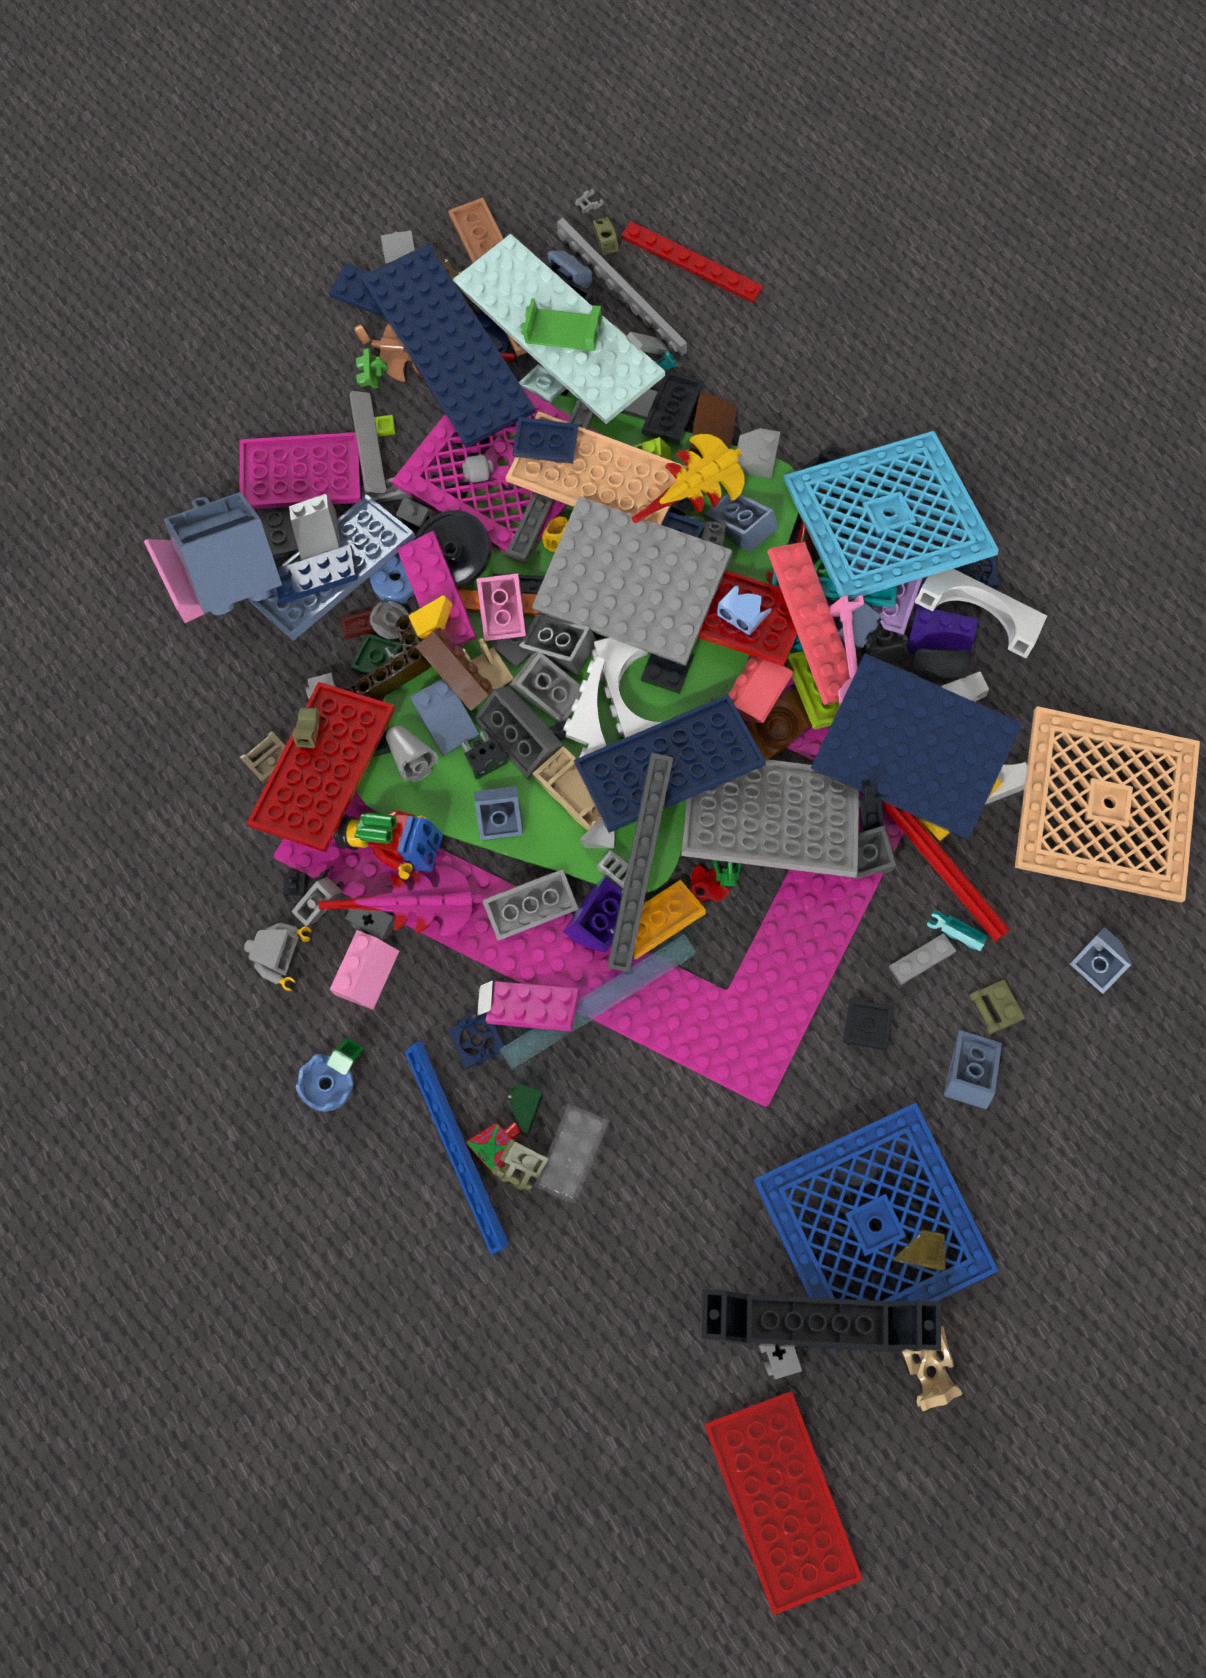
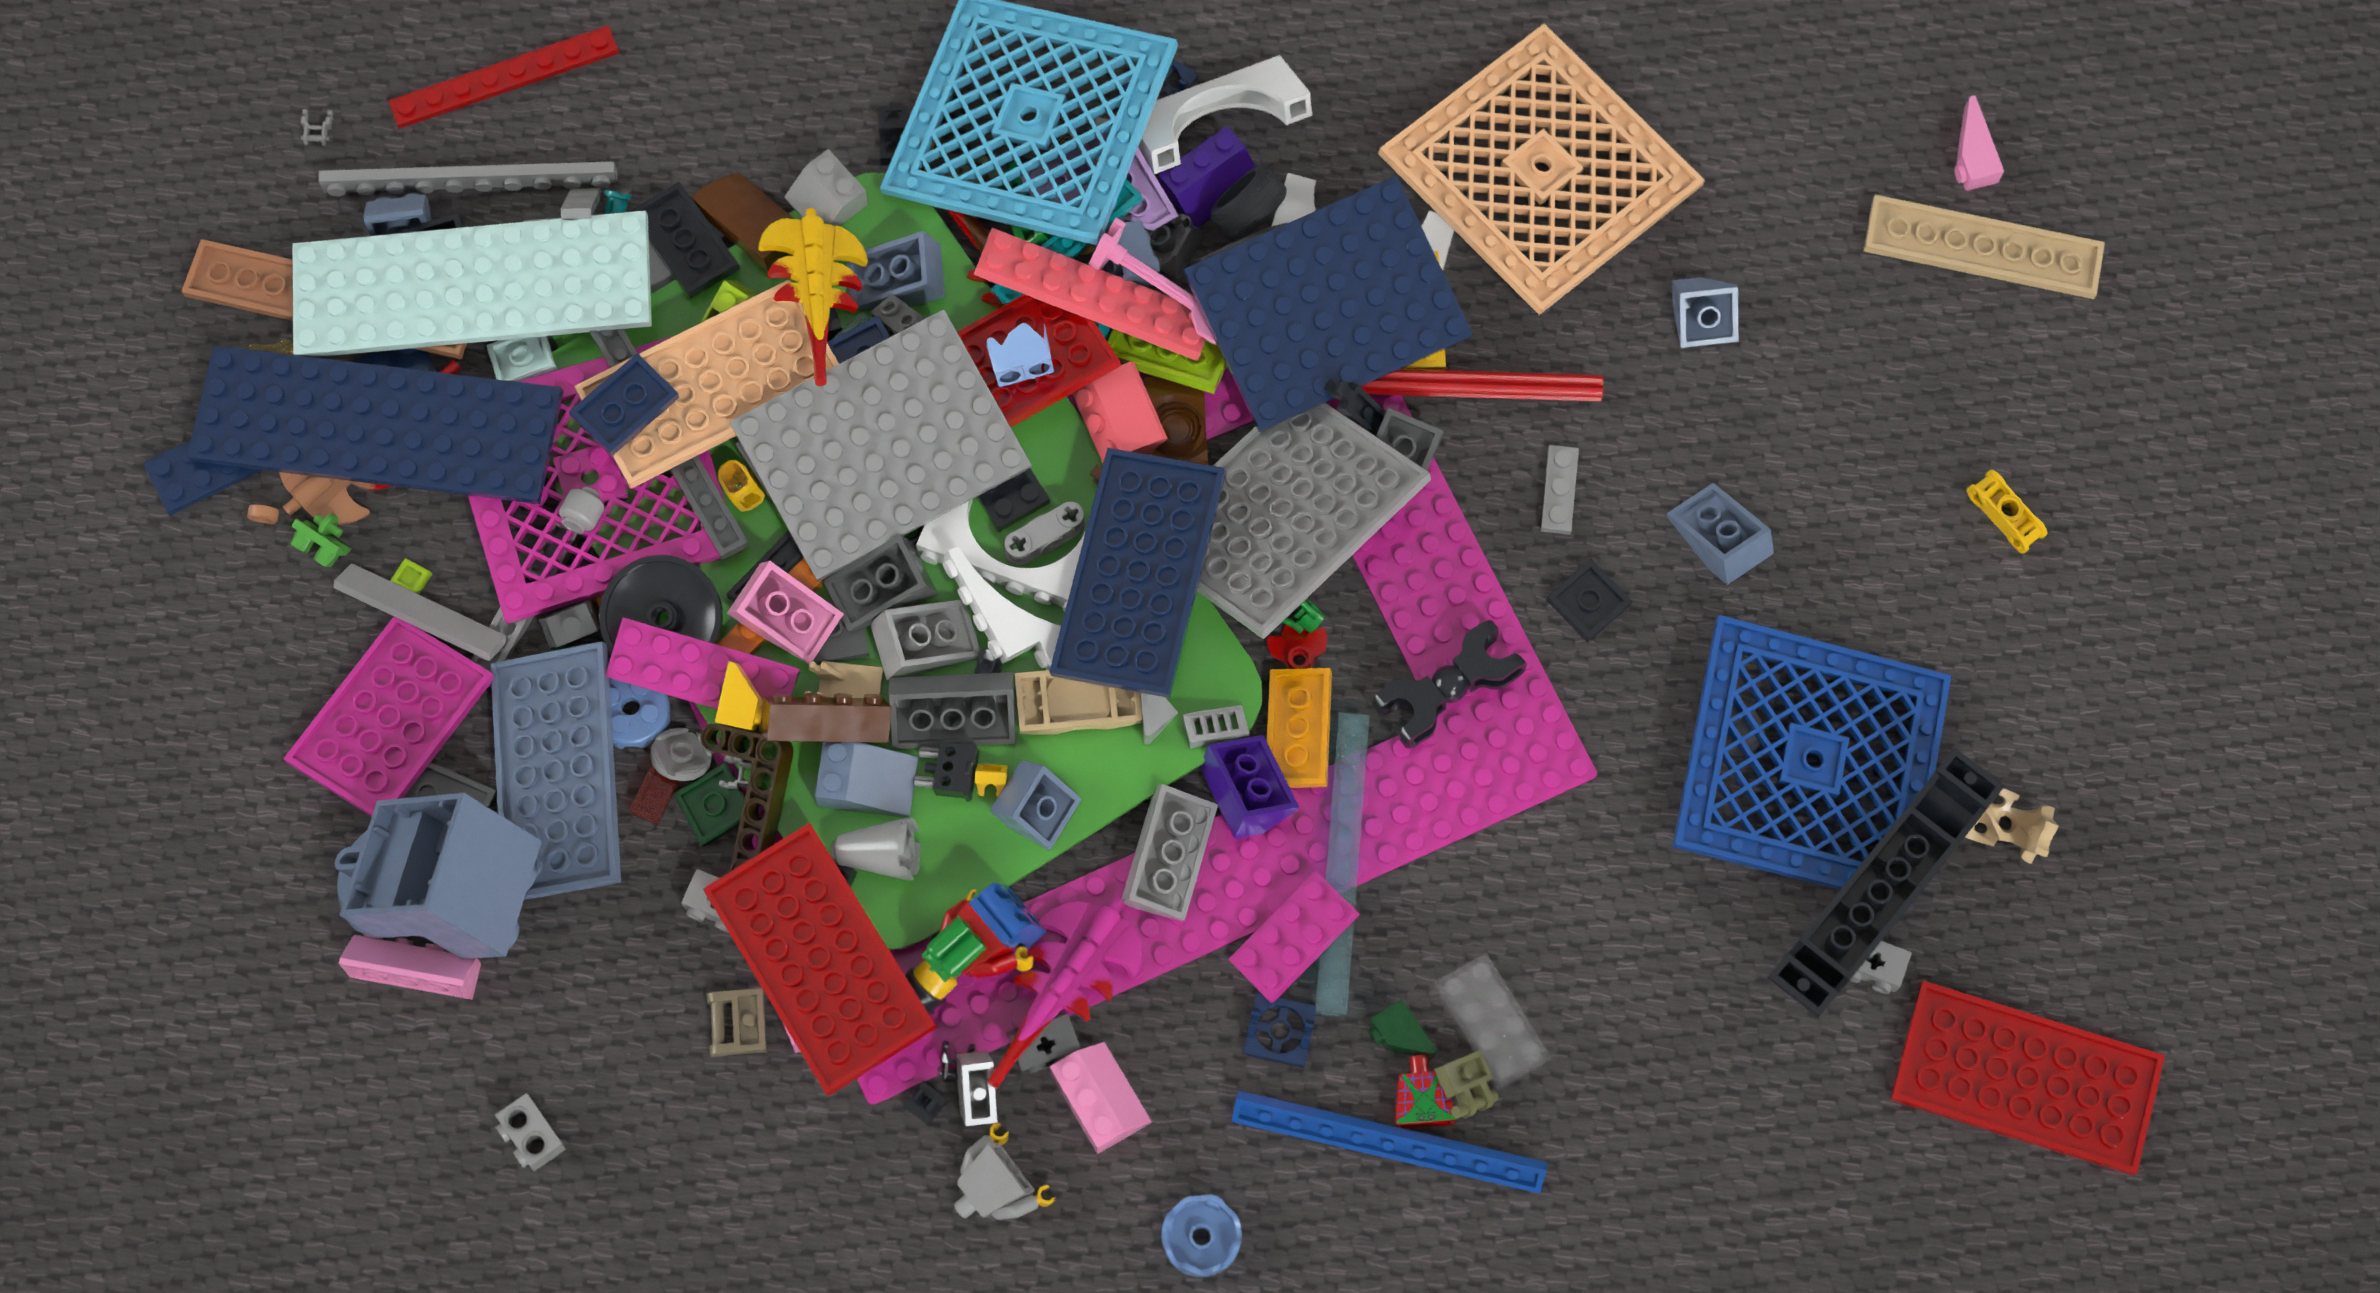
camera: 60 degrees left, 0 degrees up
(137, 702) = (534, 1129): none -> light grey brick
(307, 727) = (760, 939): olive leg -> none
(315, 526) = (491, 753): light grey slope -> none
(316, 574) = (558, 790): plate -> none
(345, 1056) = (1191, 1187): green slope -> none
(397, 245) = (174, 386): light grey piece -> none
(485, 998) = (1240, 984): white sticker -> none
(496, 776) = (991, 774): none -> yellow tile
(561, 327) = (486, 278): bright green panel -> none
(605, 236) = (382, 142): olive leg -> none
(640, 862) = (1232, 689): dark grey plate -> none
(655, 701) = (1044, 534): none -> light grey piece
(750, 981) = (1449, 684): none -> black piece
(925, 1251) = (1881, 728): clear yellow slope -> none
(958, 930) = (1558, 427): teal plate -> none
(1003, 1004) = (1671, 447): olive plate -> none
(1137, 1217) = (2013, 526): none -> yellow piece

